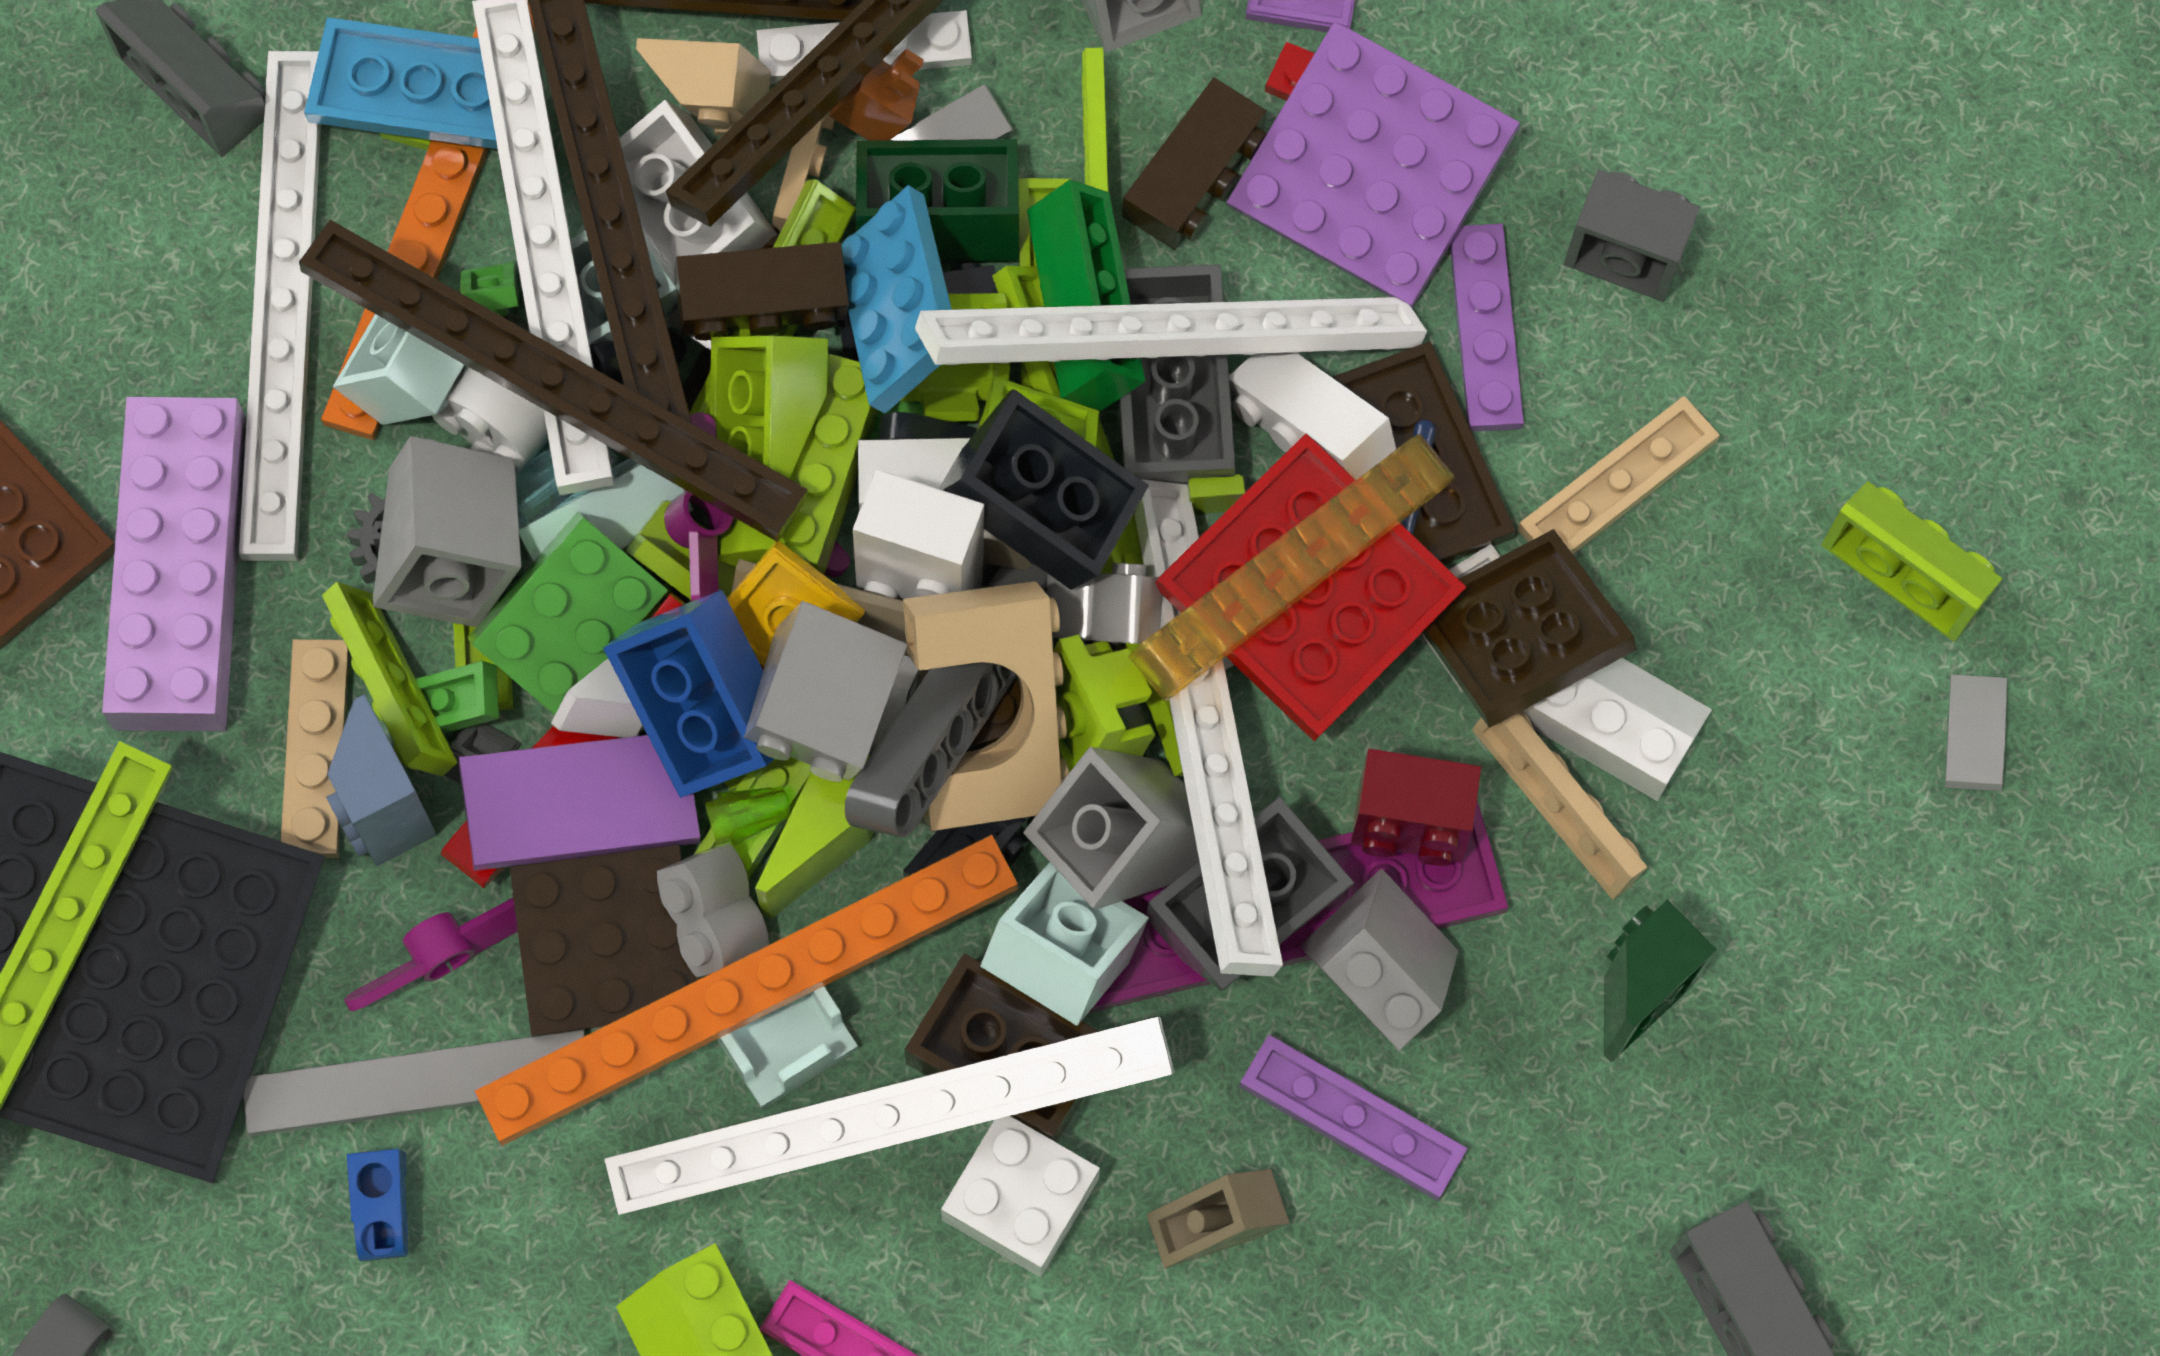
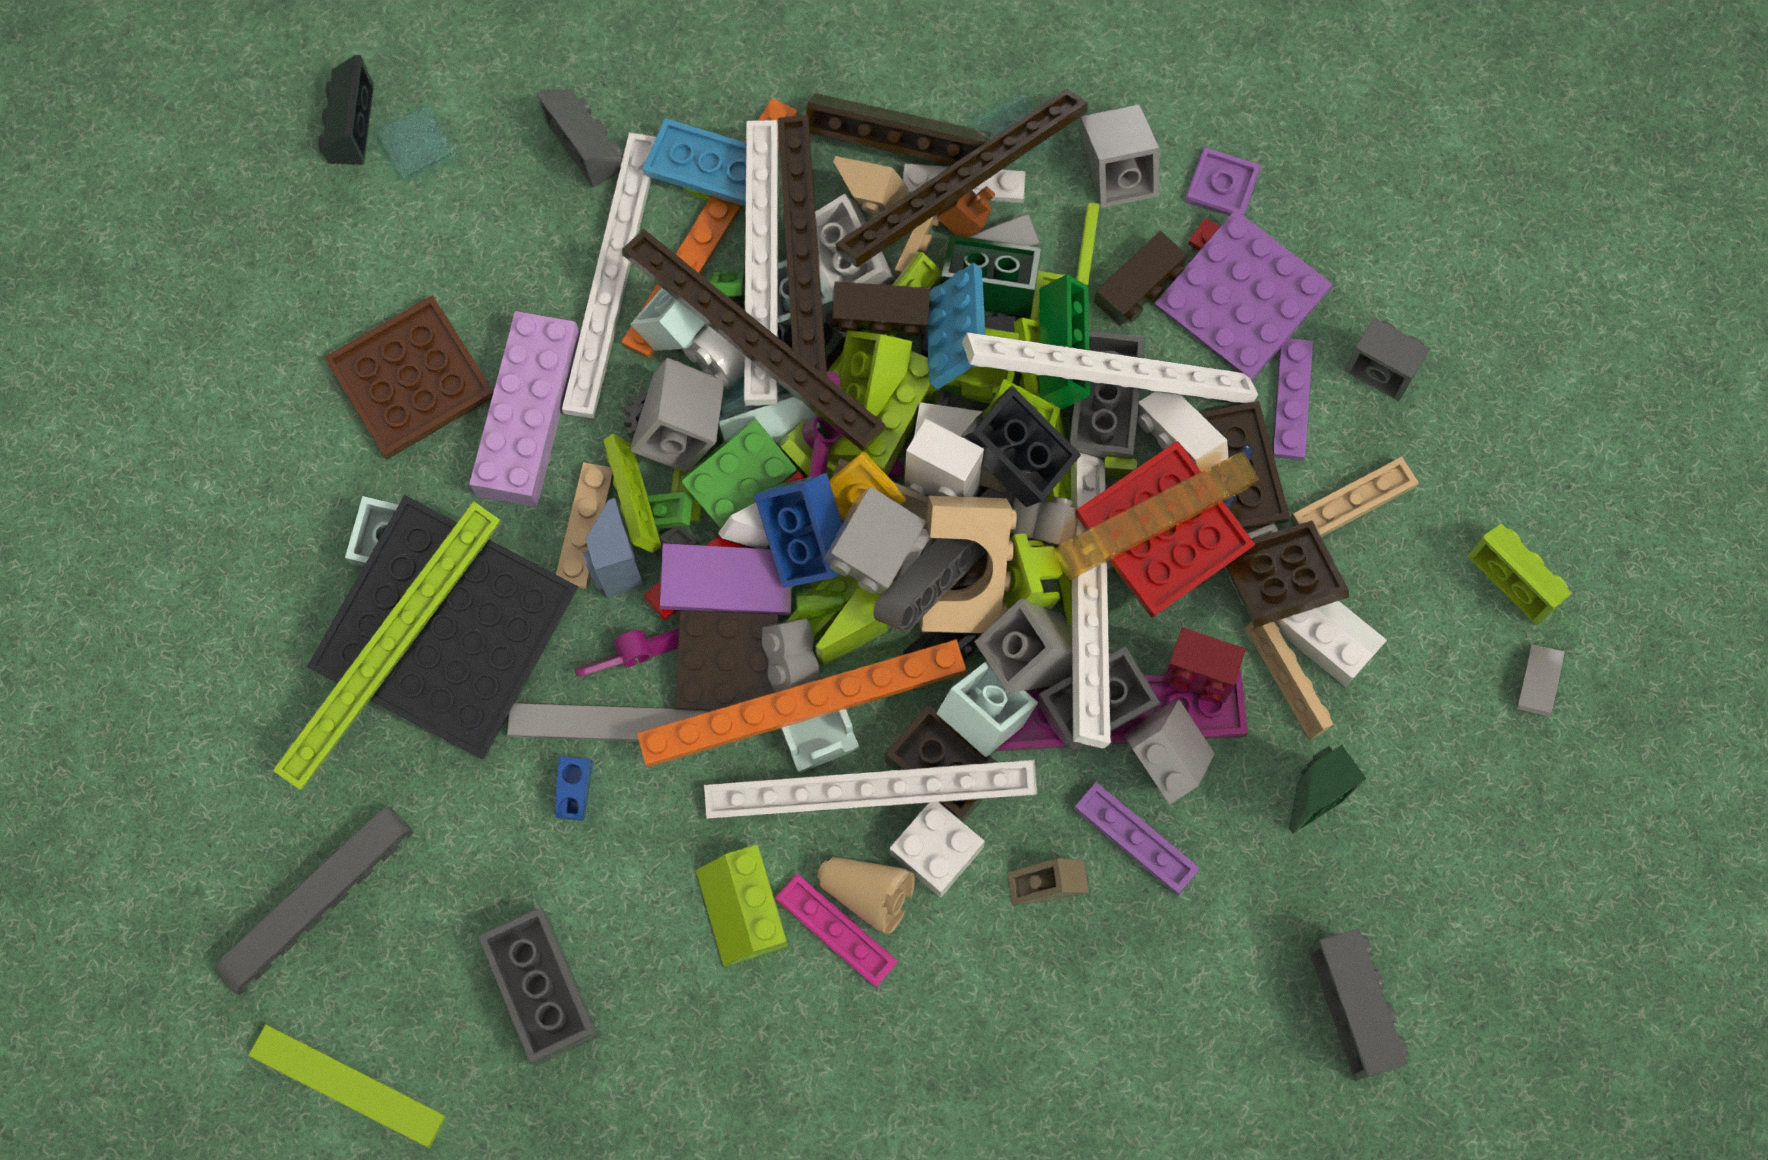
camera: 15 degrees right, 0 degrees up
(917, 1286) = (868, 890): none -> tan cone

